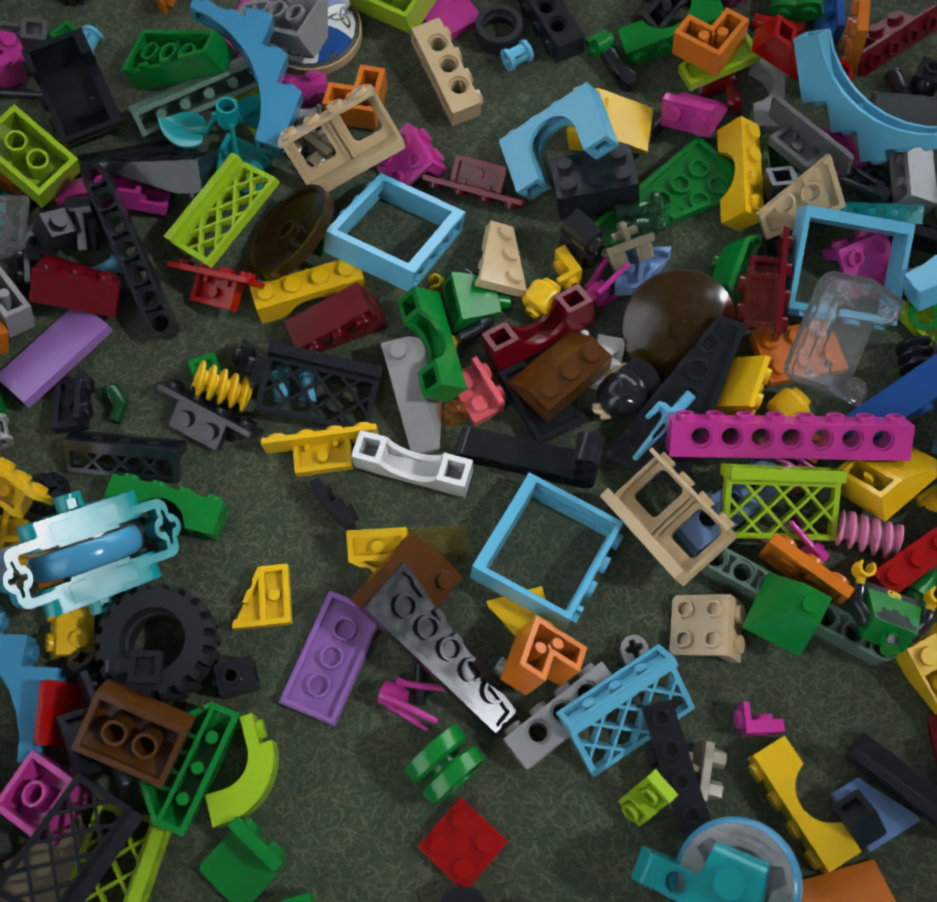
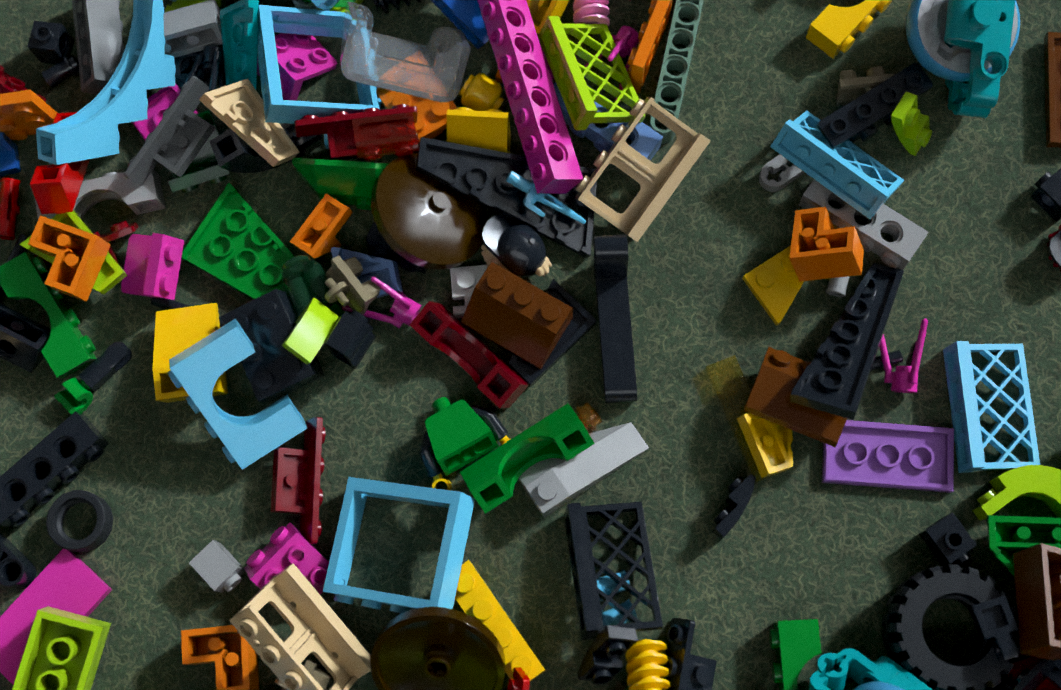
camera: 100 degrees left, 5 degrees up
(267, 600) = (857, 541): yellow wing -> none
(319, 450) = (682, 540): yellow bracket -> none
(337, 320) = (528, 577): dark red wedge -> none
(341, 743) = (965, 404): none -> medium azure fence
(429, 110) = (218, 567): none -> light grey brick
(434, 36) = (151, 581): tan brick -> none
(438, 472) = (664, 437): white arch -> none
(441, 761) = (956, 304): green wheel -> none
(462, 844) = (1009, 276): red plate -> none
(482, 395) = (560, 389): coral bracket -> none
(500, 262) = (401, 417): tan wing -> none
(516, 55) = (112, 488): medium azure bush -> none
(539, 297) = (429, 364): yellow head -> none
(567, 268) = (382, 349): yellow bracket -> none
(570, 506) = (700, 323): medium azure window -> none
(594, 202) = (310, 331): none -> slope
(689, 241) = (320, 228): none -> orange slope
(707, 626) = (730, 116): tan bracket -> none
(741, 143) = (184, 205): yellow arch -> none
(761, 725) = (805, 53): dark pink bracket -> none
(786, 613) = (699, 43): green slope -> none

